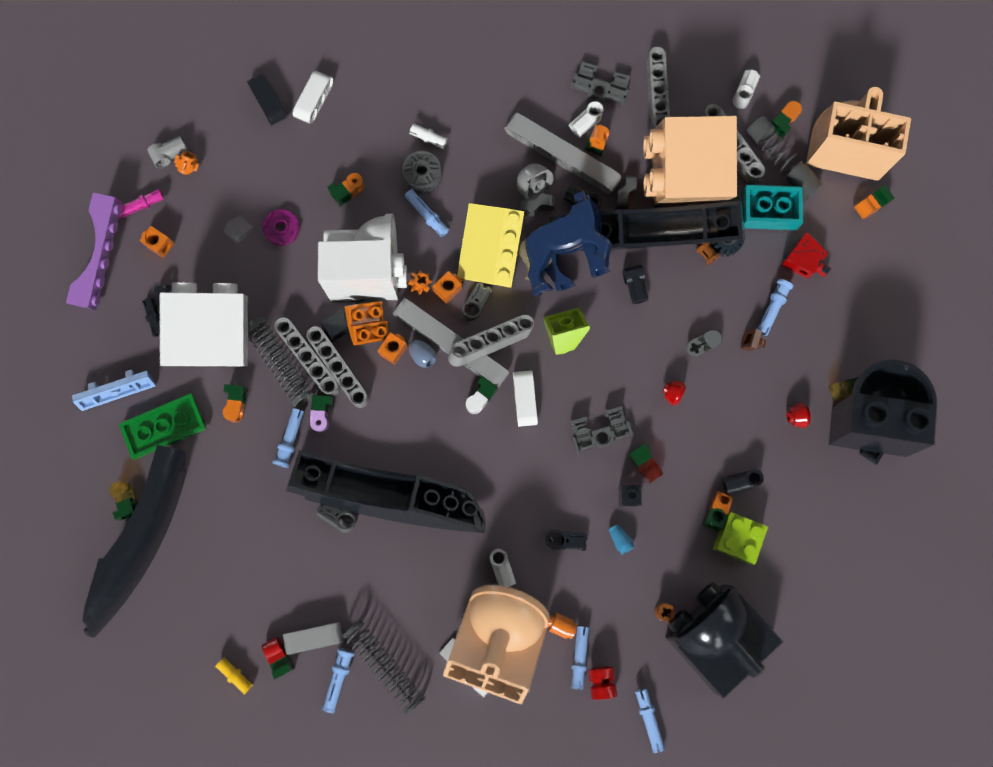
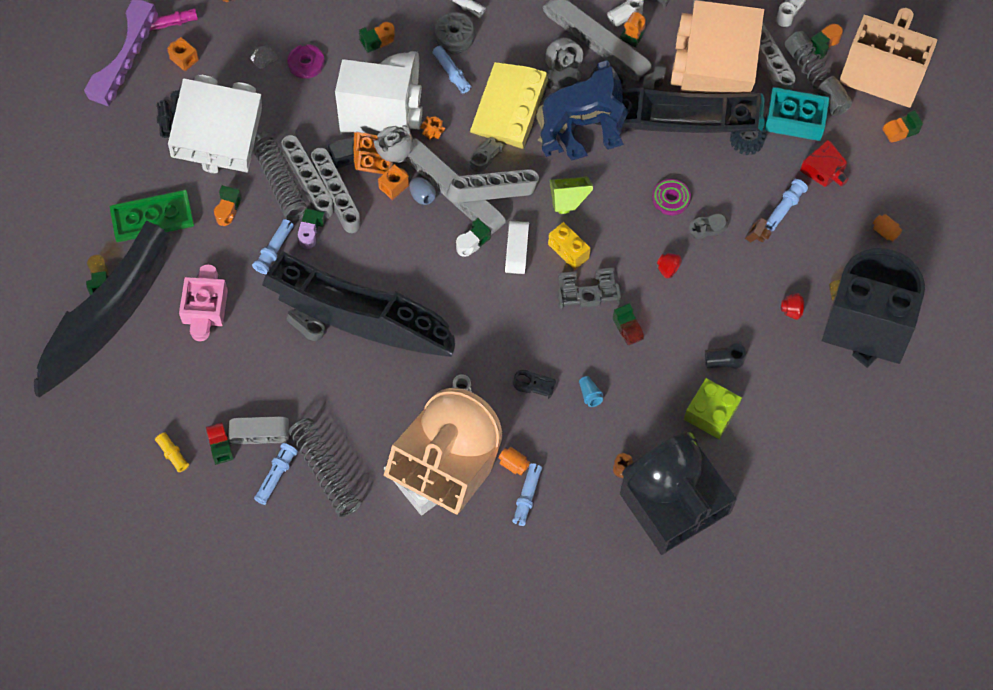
camera: 10 degrees right, 15 degrees down
(99, 395) = (111, 176): light blue hinge -> none
(232, 514) = (203, 302): none -> bright pink brick
(386, 312) = (394, 144): none -> light grey cylinder
(444, 294) = (452, 138): orange brick -> none
(575, 389) = (569, 246): none -> yellow brick
(604, 690) = (545, 519): red wheel -> none
(630, 496) = (606, 351): black brick -> none
(634, 279) = (648, 160): black piece -> none
(647, 711) = (587, 556): light blue pin -> none
(668, 306) = (675, 188): none -> magenta tile
(708, 253) = (726, 146): dark orange bush -> none
(718, 511) = (693, 381): leg -> none
(874, 315) = (887, 227): none -> orange brick

